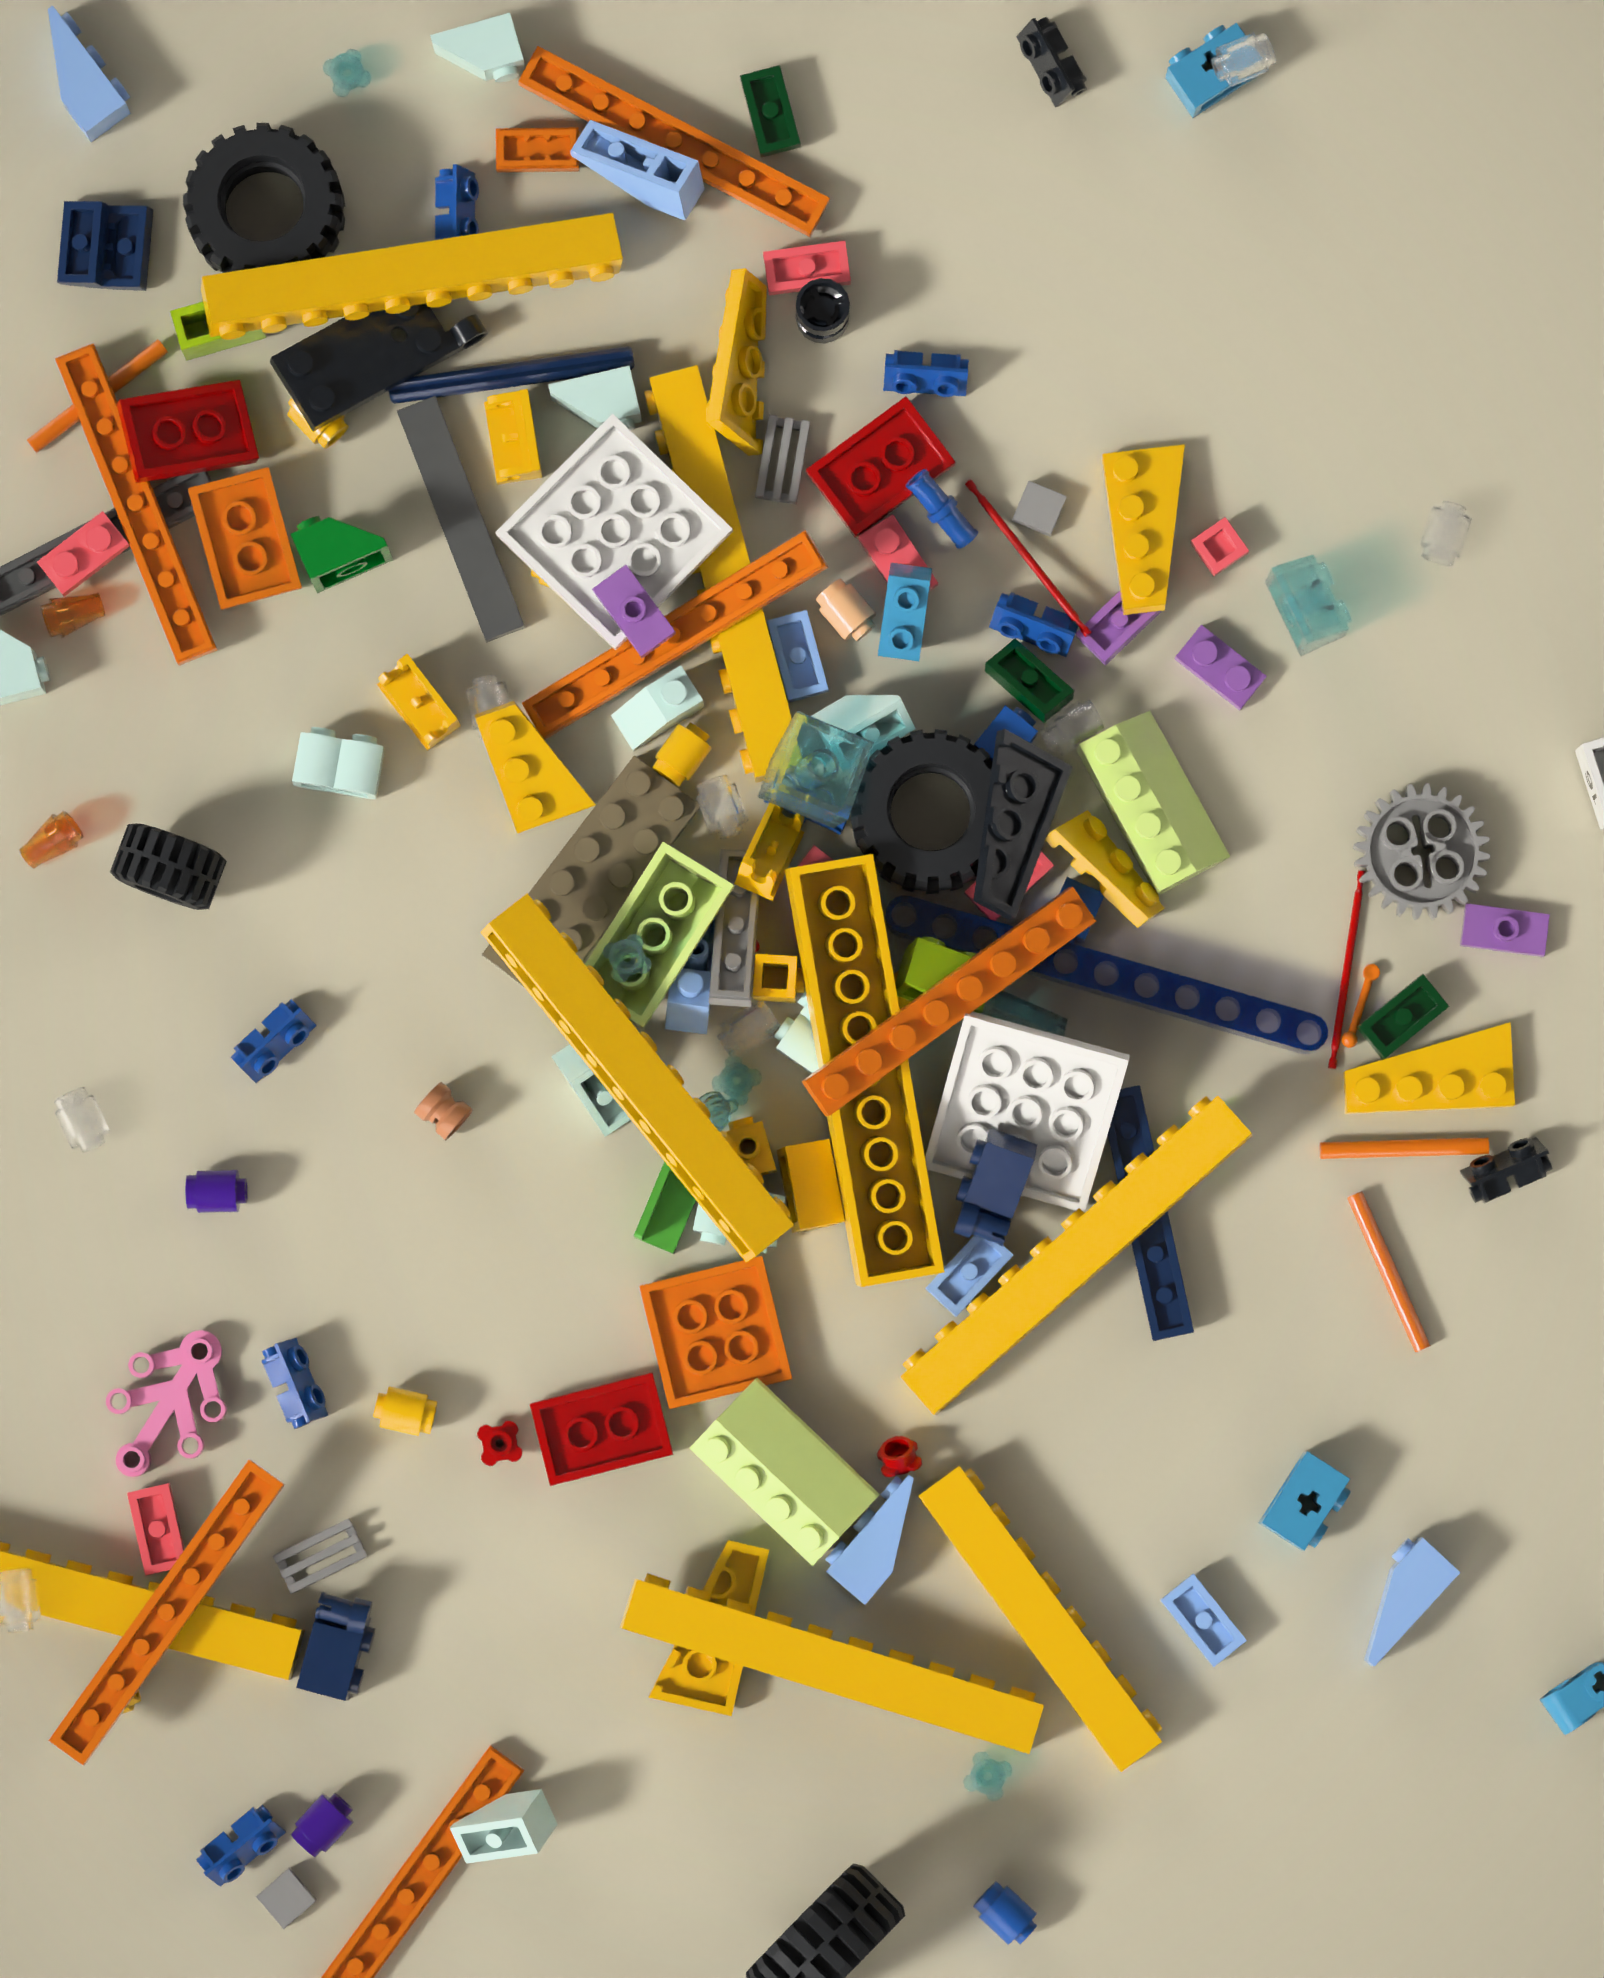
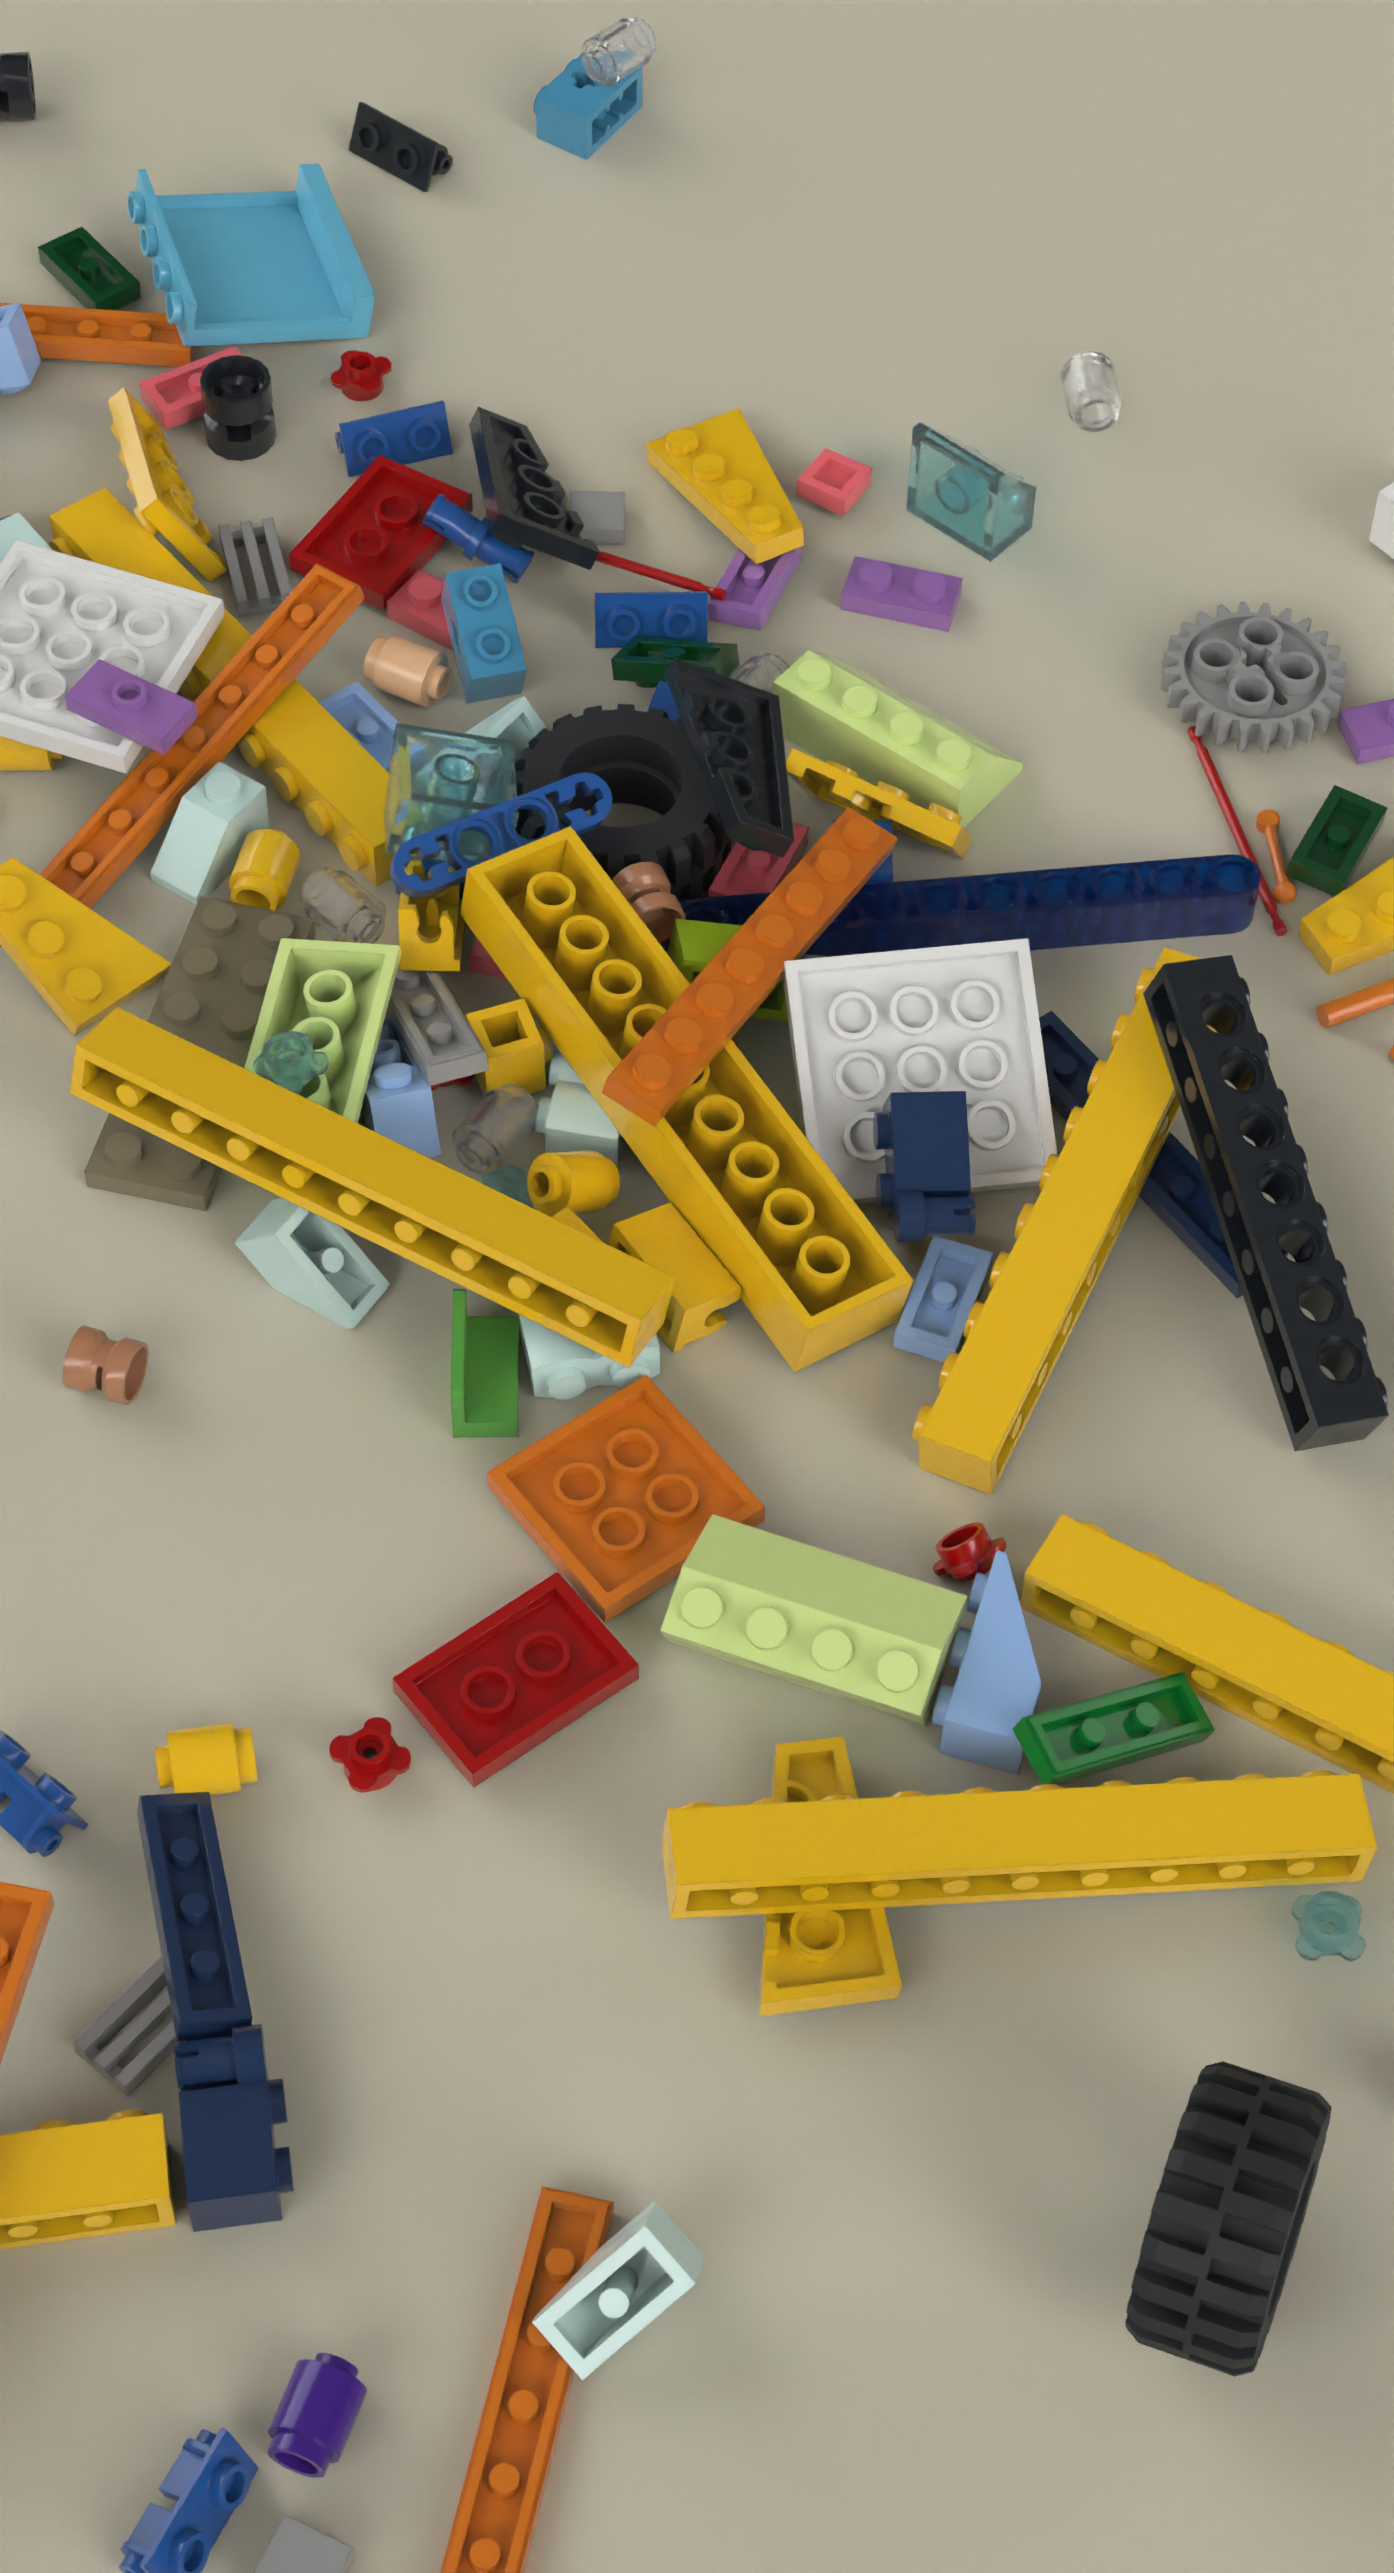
camera: 25 degrees left, 30 degrees down
(362, 1511) = (193, 1915): none -> dark blue plate
(776, 1096) = (572, 1179): none -> yellow brick
(829, 842) = (499, 830): none -> blue beam
(889, 156) = (254, 263): none -> medium azure panel
(906, 903) = (649, 894): none -> nougat wheel
(923, 1613) = (1113, 1729): none -> green tile
(928, 308) = (361, 375): none -> red plate
(988, 480) = (520, 497): none -> black wing
(1195, 1159) = (1314, 1407): none -> black brick

